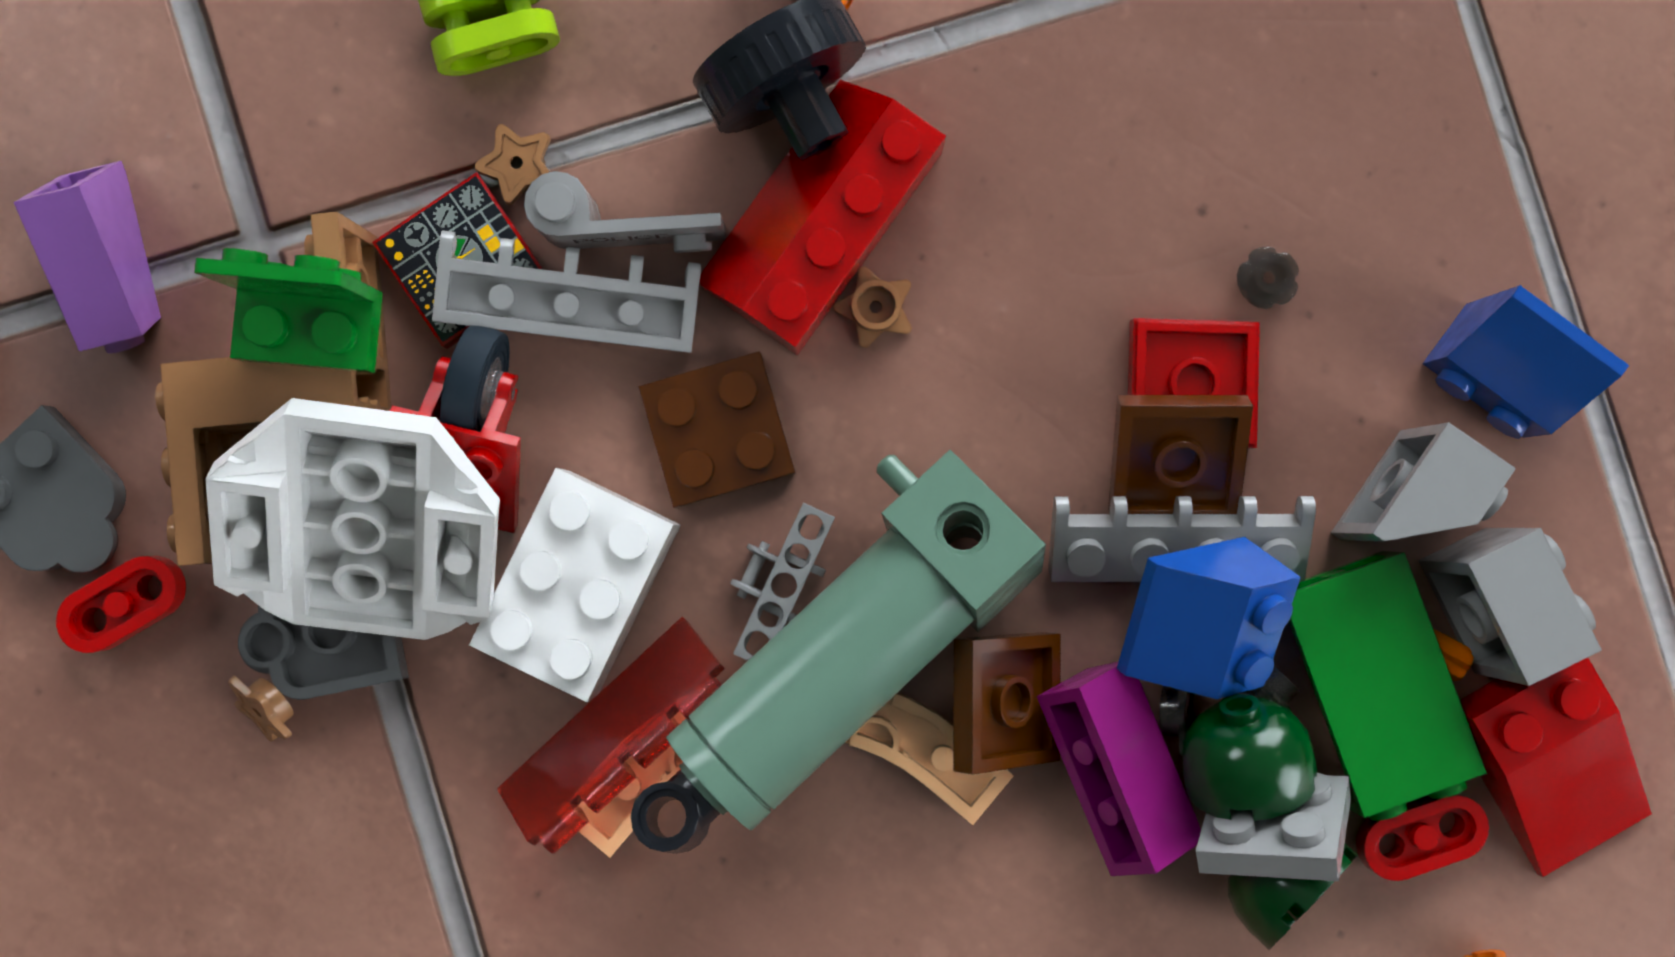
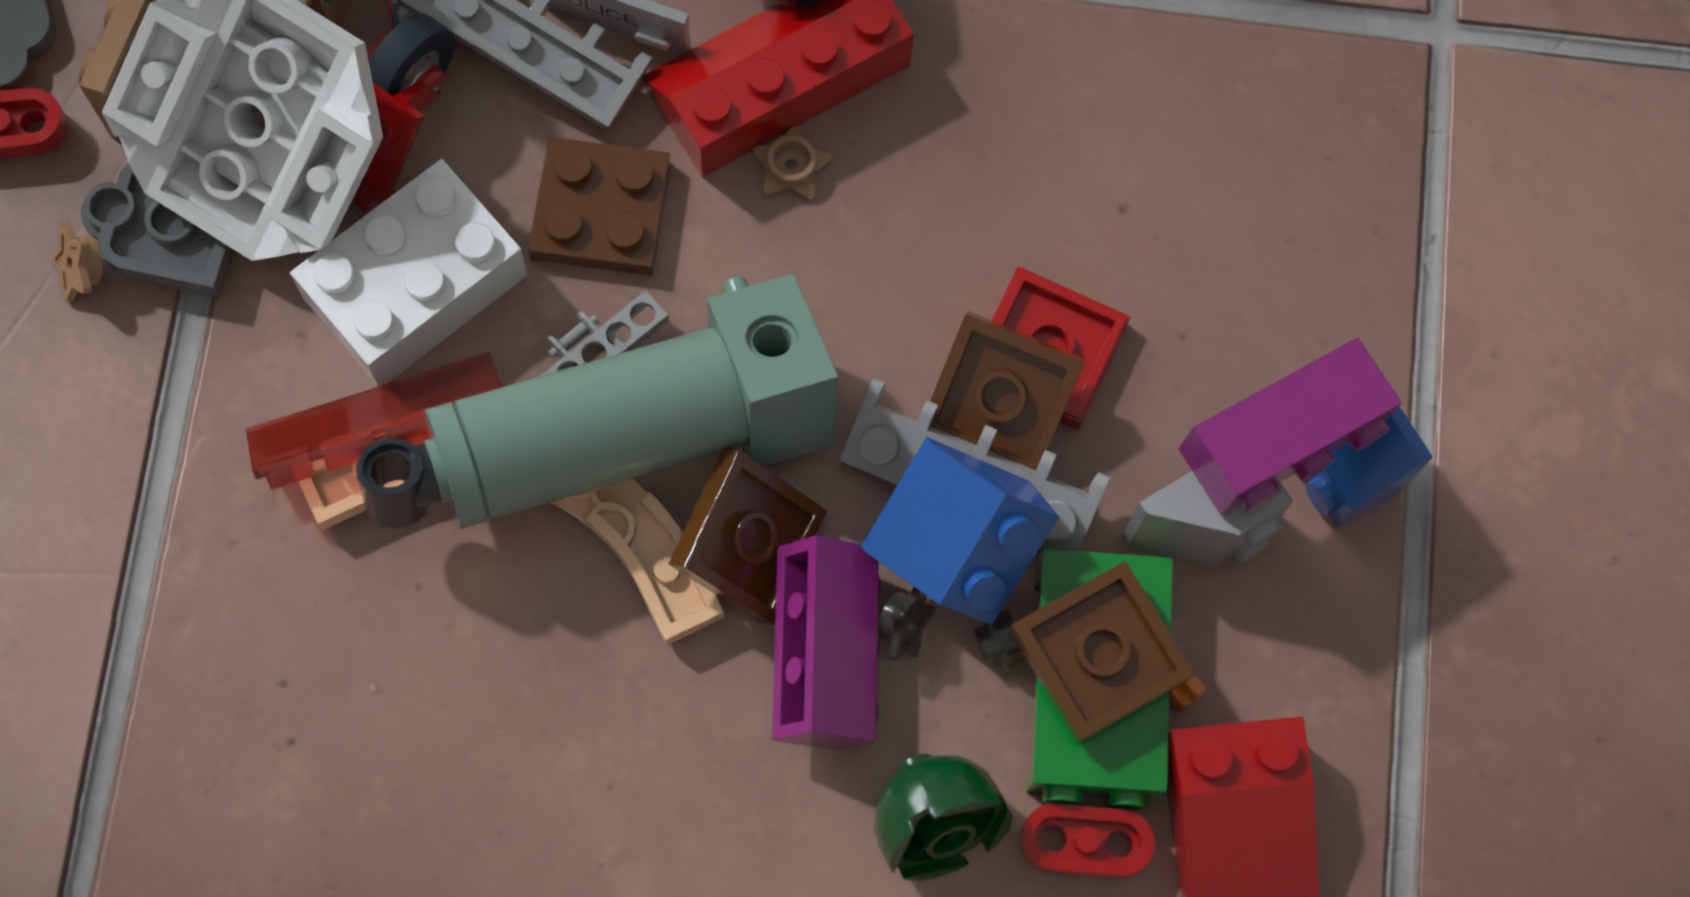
camera: 20 degrees right, 15 degrees down
(1248, 758) = (948, 670): dark green cylinder -> none
(1253, 285) = (1146, 296): clear smoke plate -> none
(1290, 846) = (943, 741): light grey plate -> none
(1385, 679) = (1101, 652): none -> reddish brown plate
(1497, 405) = (1290, 428): none -> magenta brick
(1512, 603) = (1252, 642): light grey brick -> none

